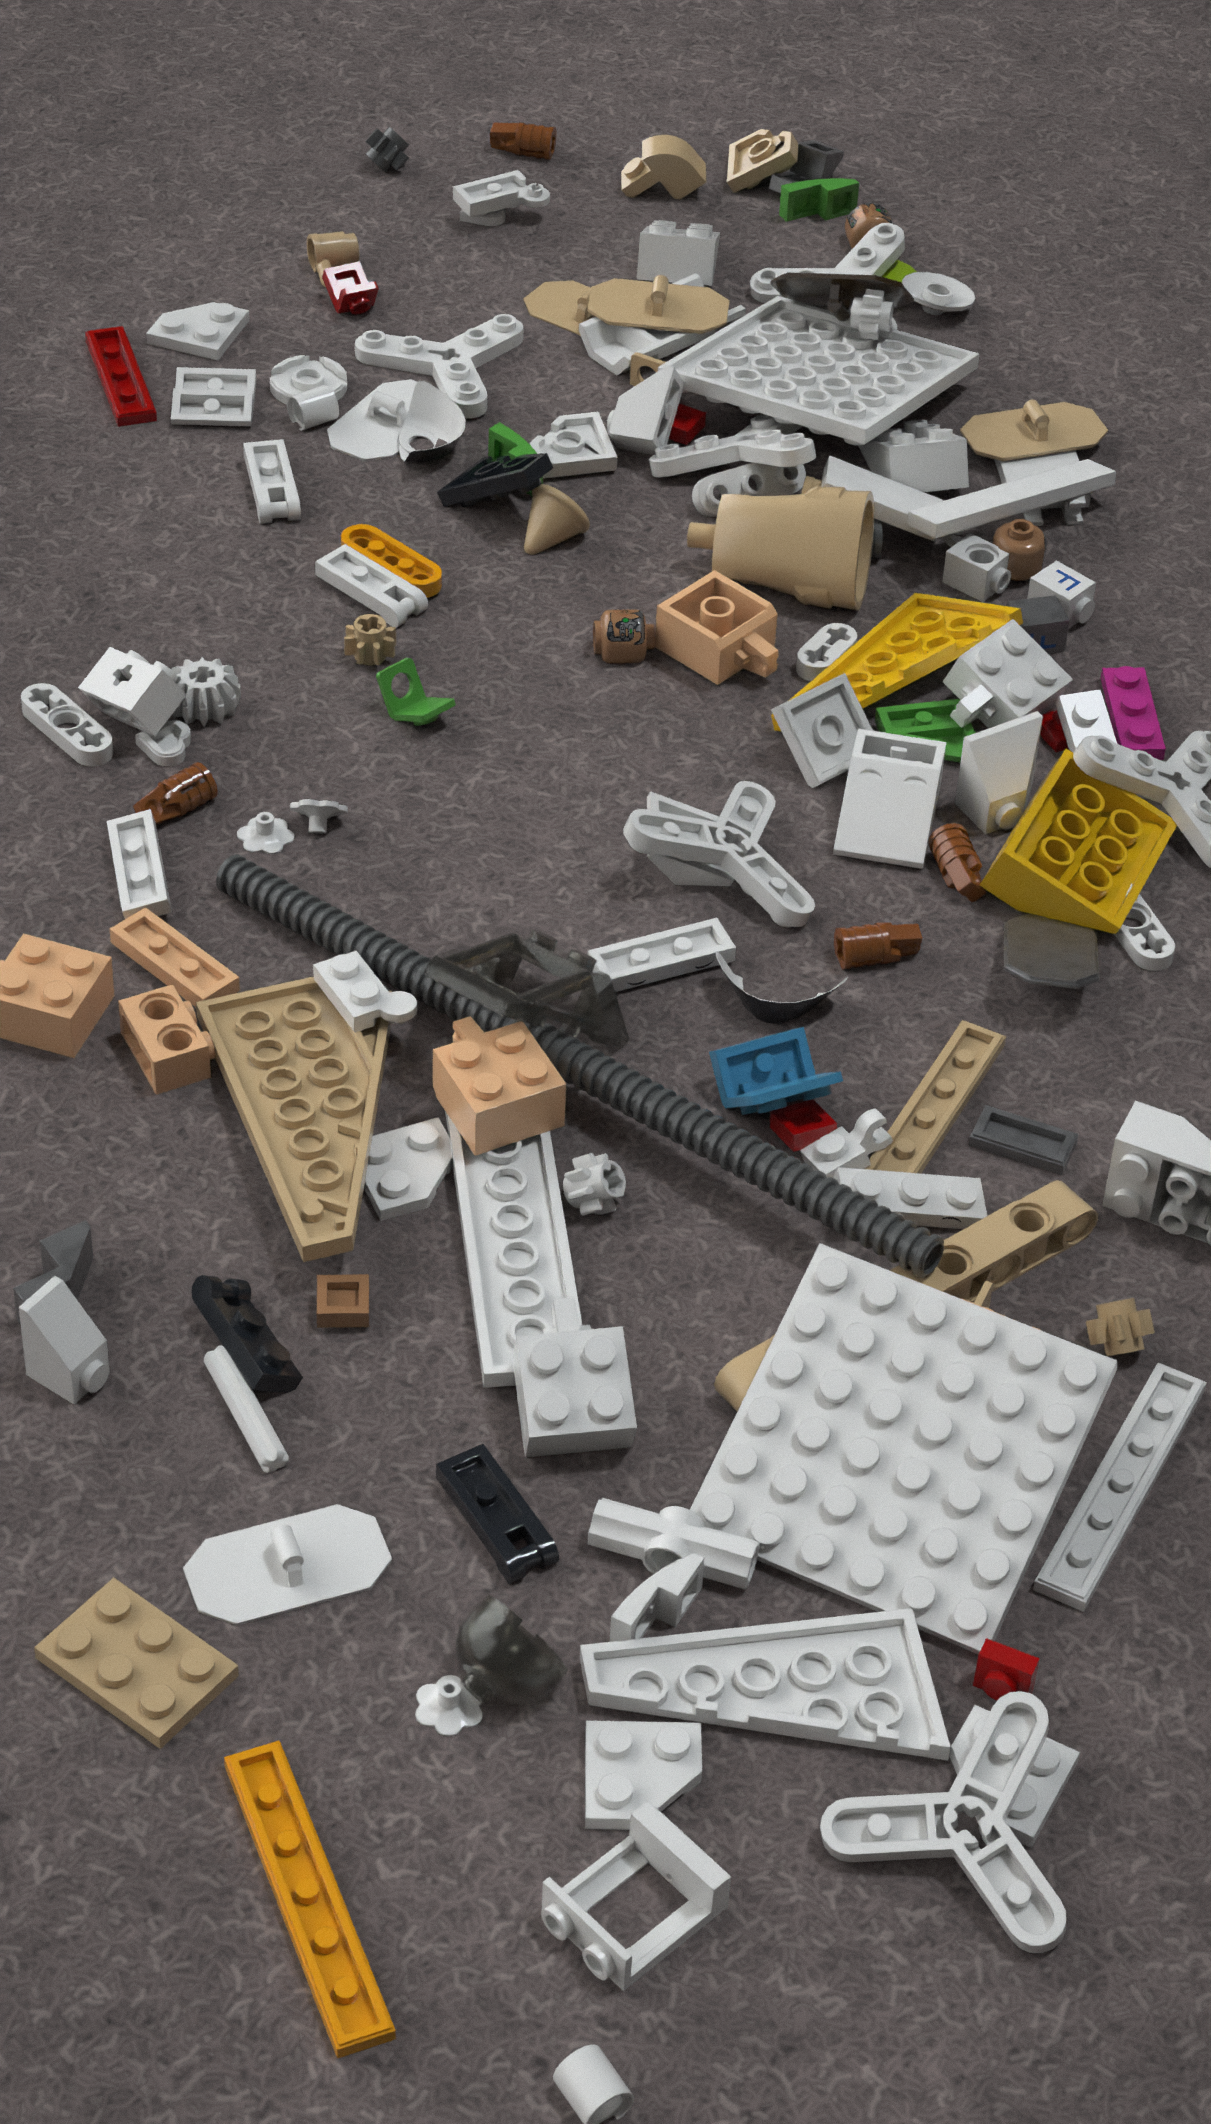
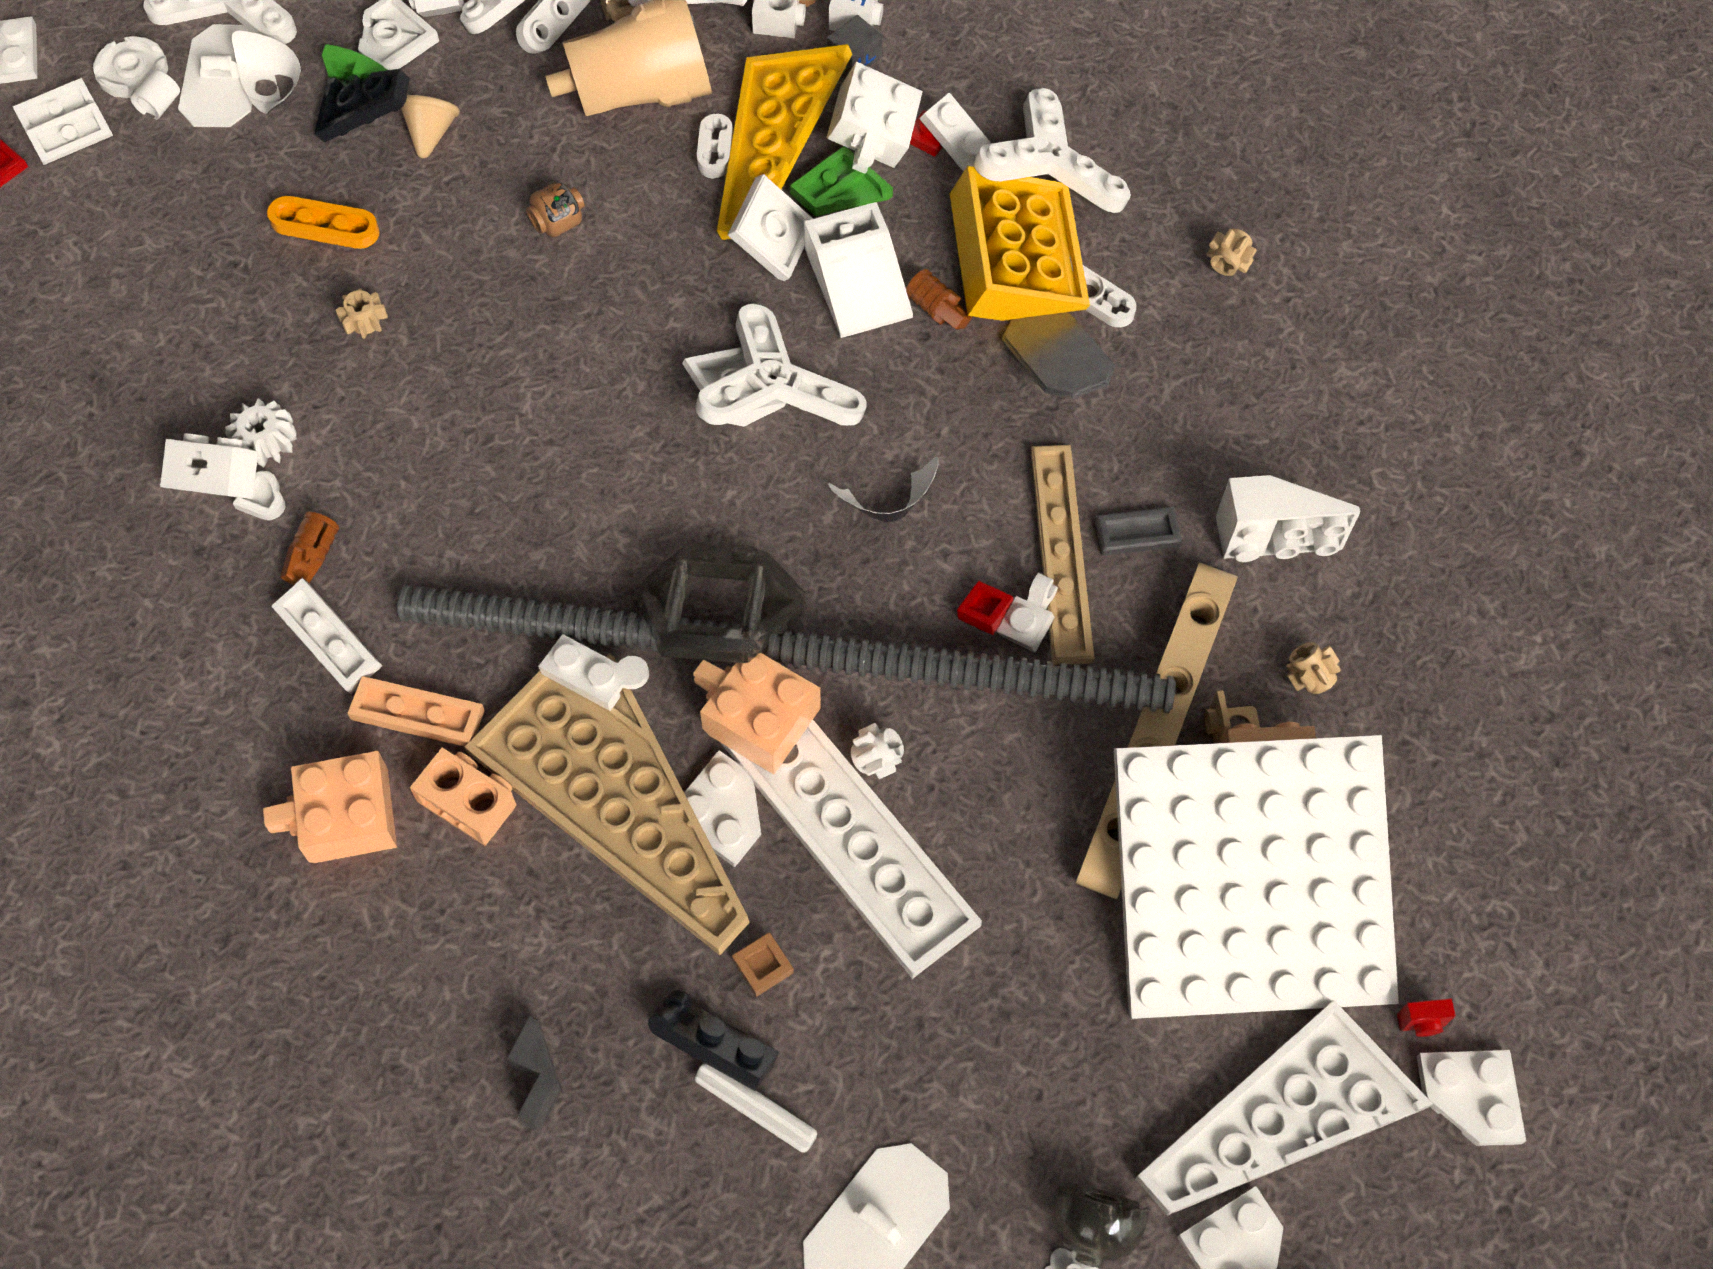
camera: 30 degrees left, 20 degrees up
(62, 1343) = (593, 1143): white slope -> none
(64, 710) = (157, 509): white beam -> none
(265, 834) = (401, 545): white plant -> none
(272, 480) = (170, 186): white plate -> none
(318, 812) = (434, 507): white plant -> none
(371, 585) = (323, 254): white plate -> none
(414, 705) = (437, 358): bright green bracket -> none
(496, 1512) = (998, 1089): black plate -> none
(573, 1386) = (991, 954): white hinge -> none
(661, 1596) = (1167, 1092): white slope -> none
(664, 954) = (783, 502): white plate -> none
(671, 1536) = (1138, 1040): white piece -> none
(718, 629) = (629, 169): light nougat hinge -> none
(769, 1073) = (941, 581): dark azure bracket -> none
(875, 943) = (927, 410): dark orange hinge -> none
(920, 1197) = (1104, 632): white plate -> none
(926, 1825) = (1459, 1181): white piece -> none
(998, 772) = (926, 209): white slope -> none
(1119, 1487) = (1377, 714): white tile -> none
(1132, 710) = (955, 77): dark pink plate -> none

